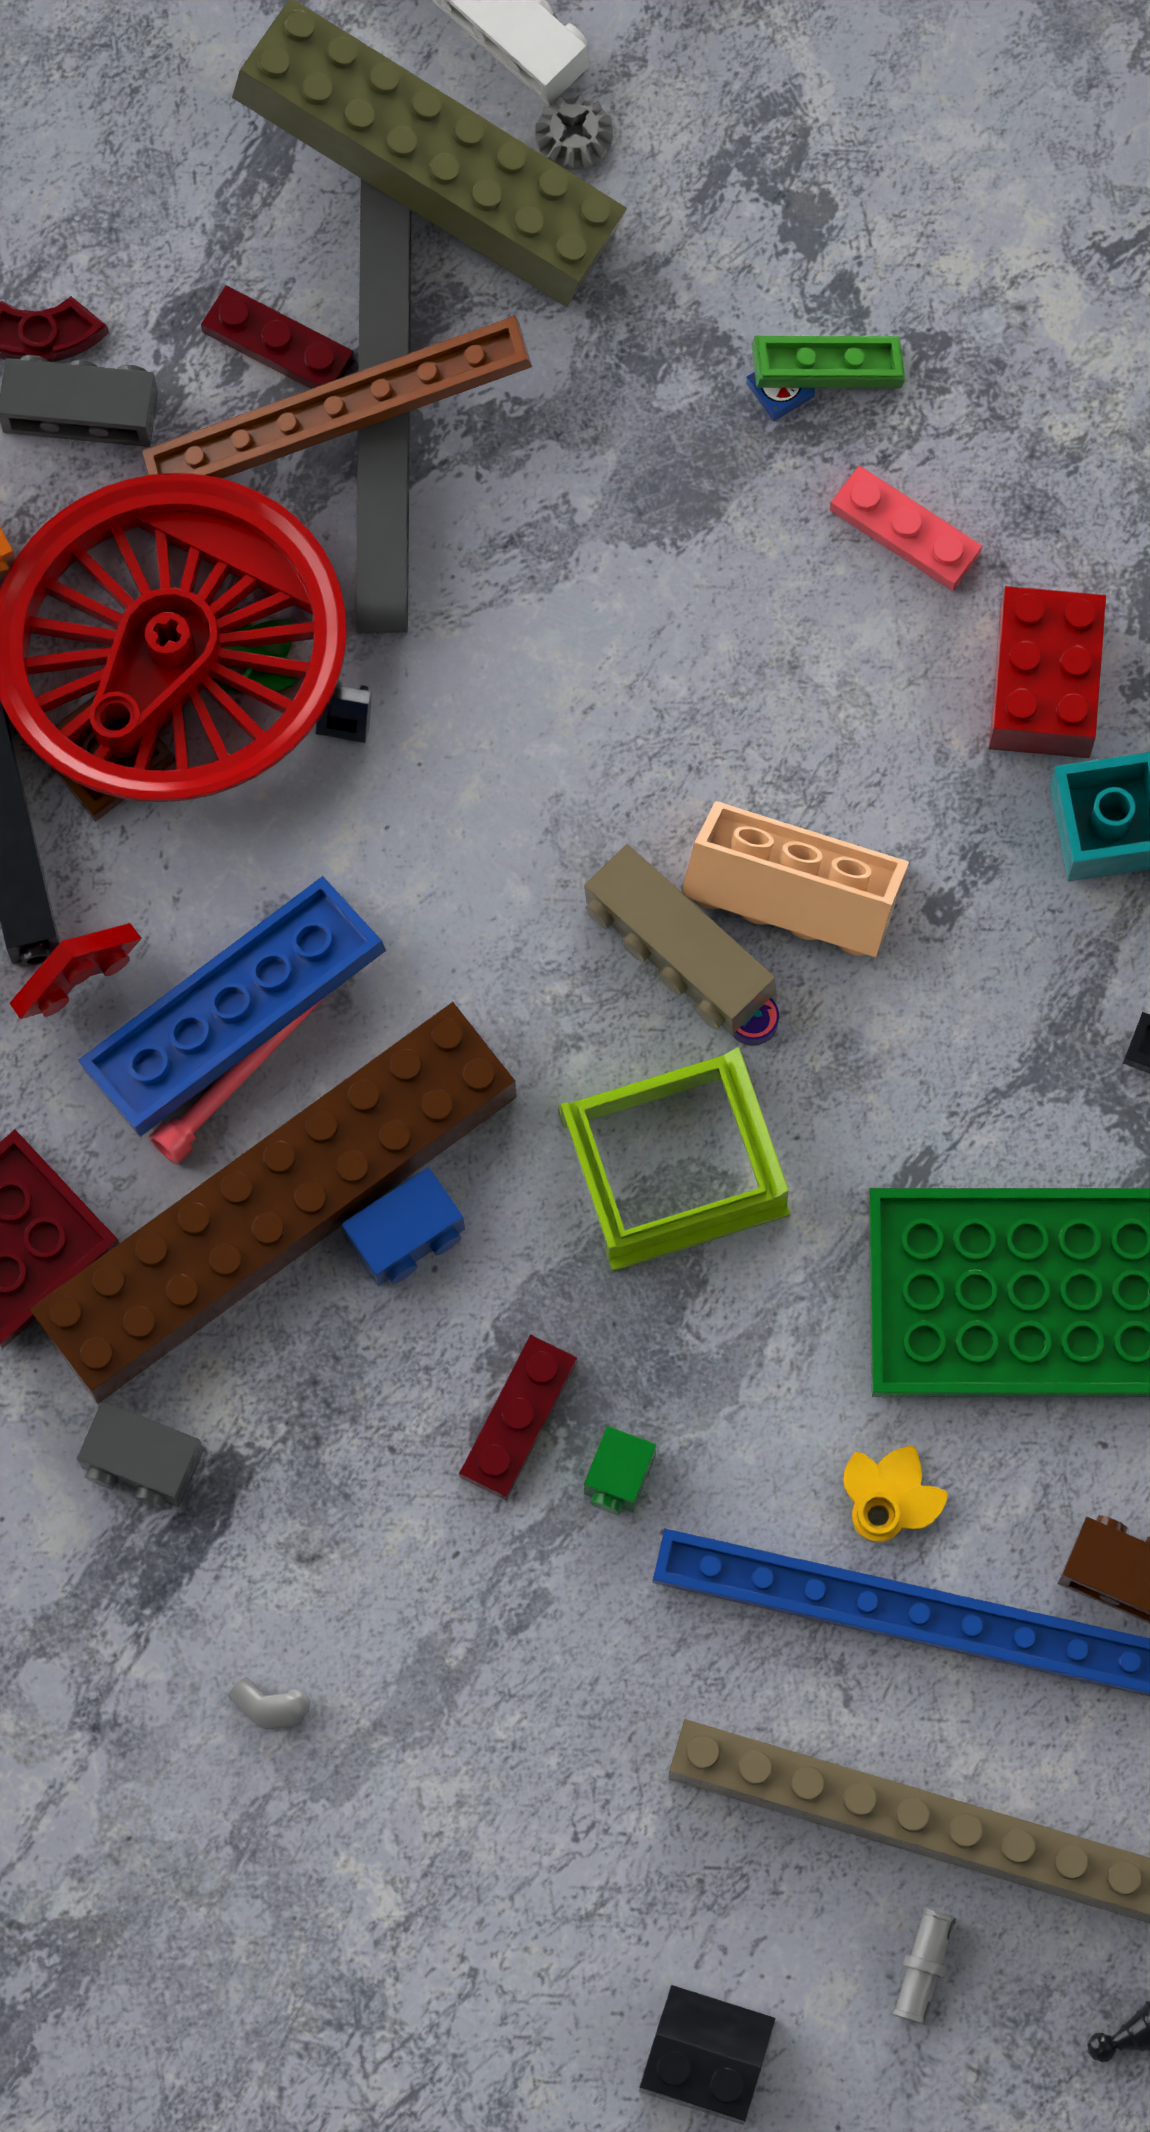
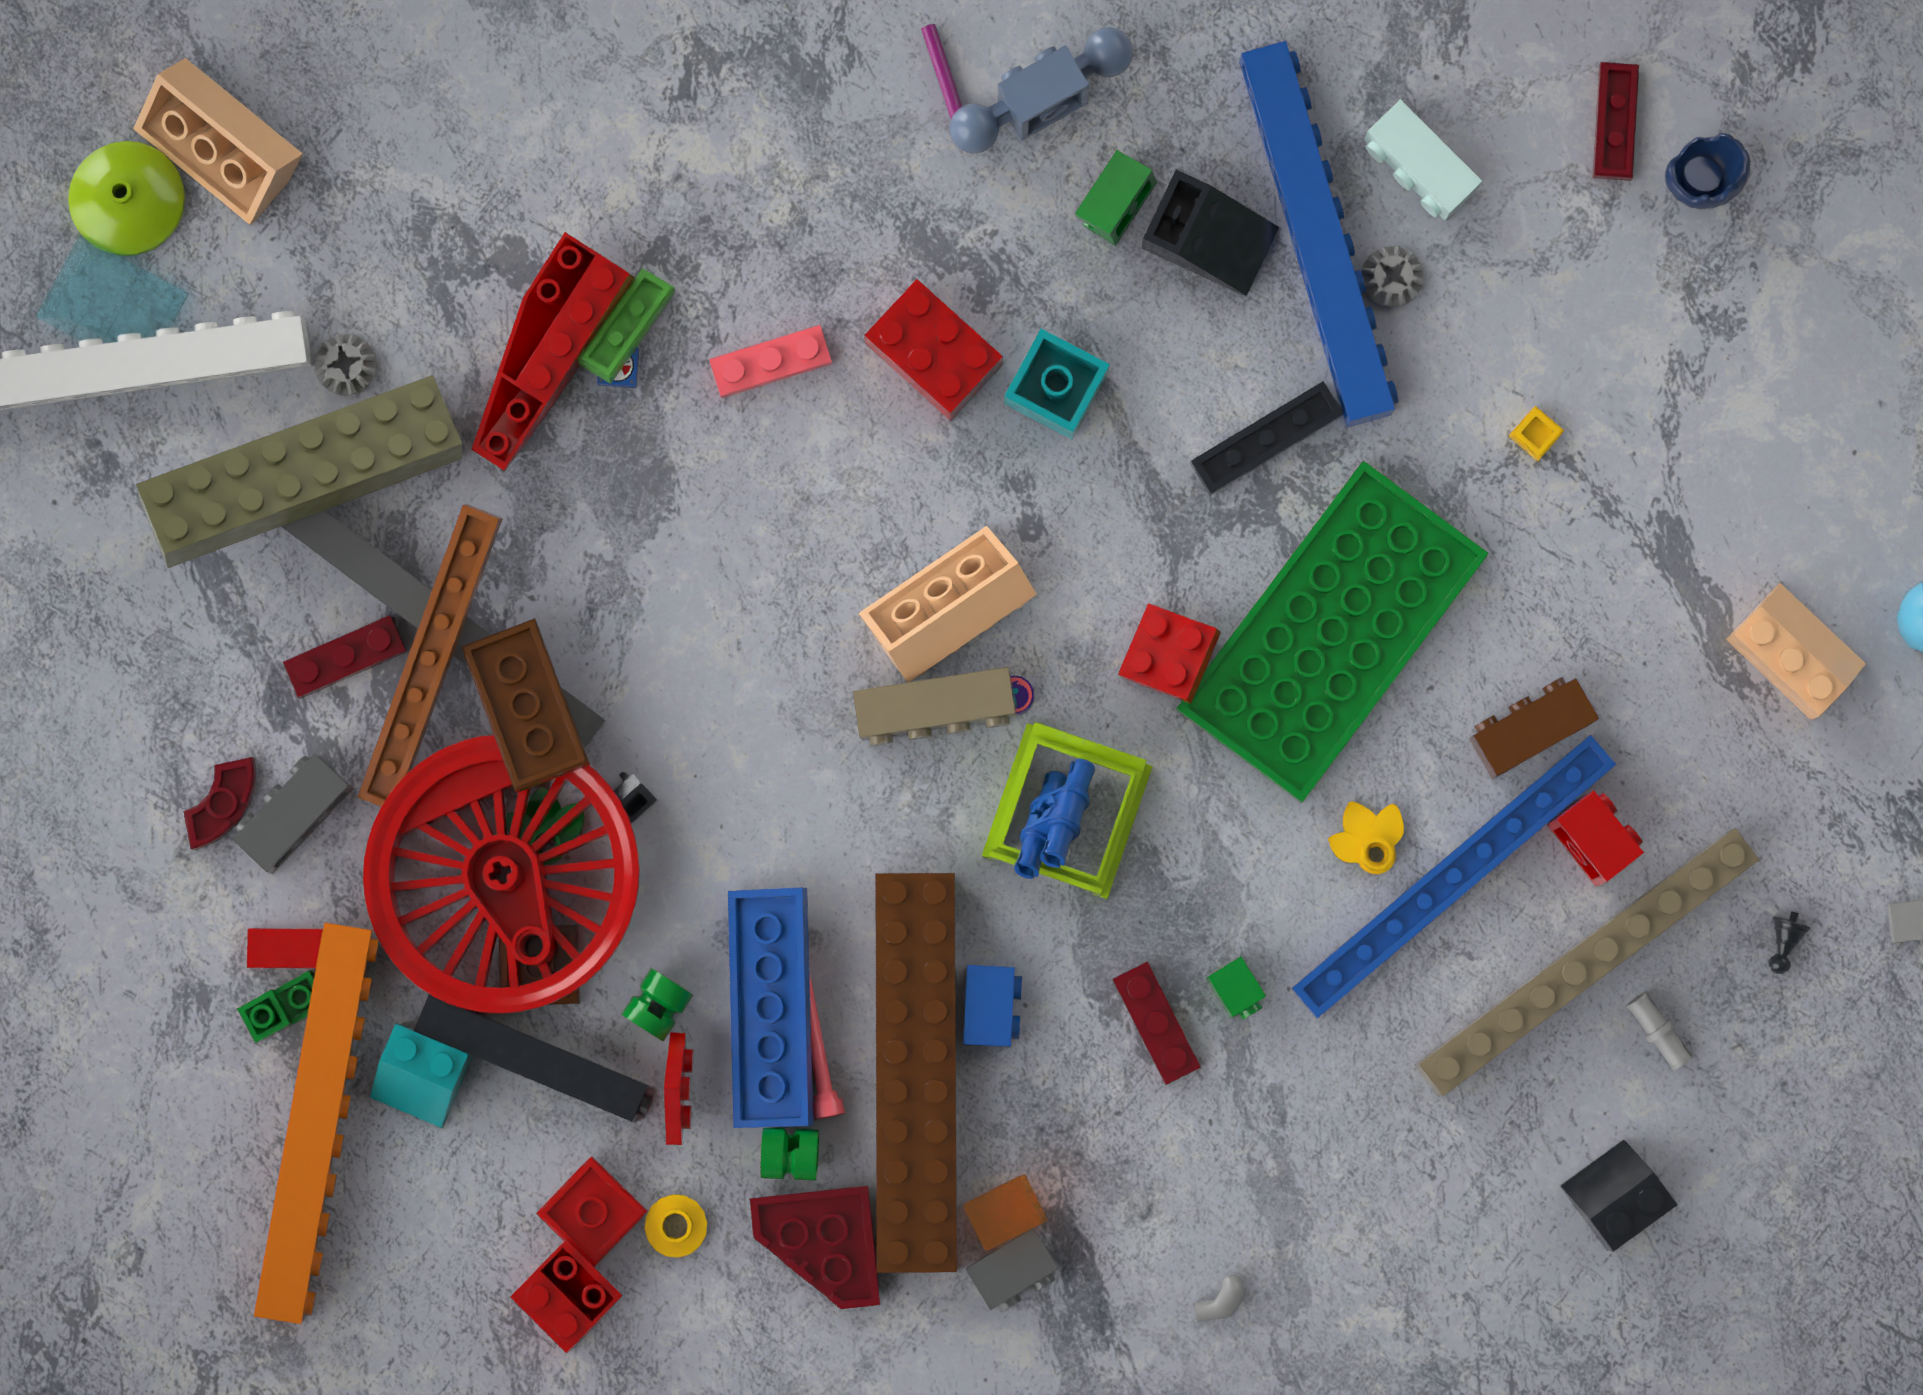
camera: 50 degrees left, 10 degrees up
(95, 1140) = (789, 1154): none -> green wheel
(168, 890) = (666, 993): none -> green wheel
(196, 1399) = (1005, 1212): none -> clear orange piece
(358, 533) = (525, 705): none -> reddish brown tile
(651, 1139) = (1054, 819): none -> blue pin
(767, 288) = (548, 336): none -> red wedge
(922, 1139) = (1169, 653): none -> red plate
(1079, 1731) = (1596, 837): none -> red brick

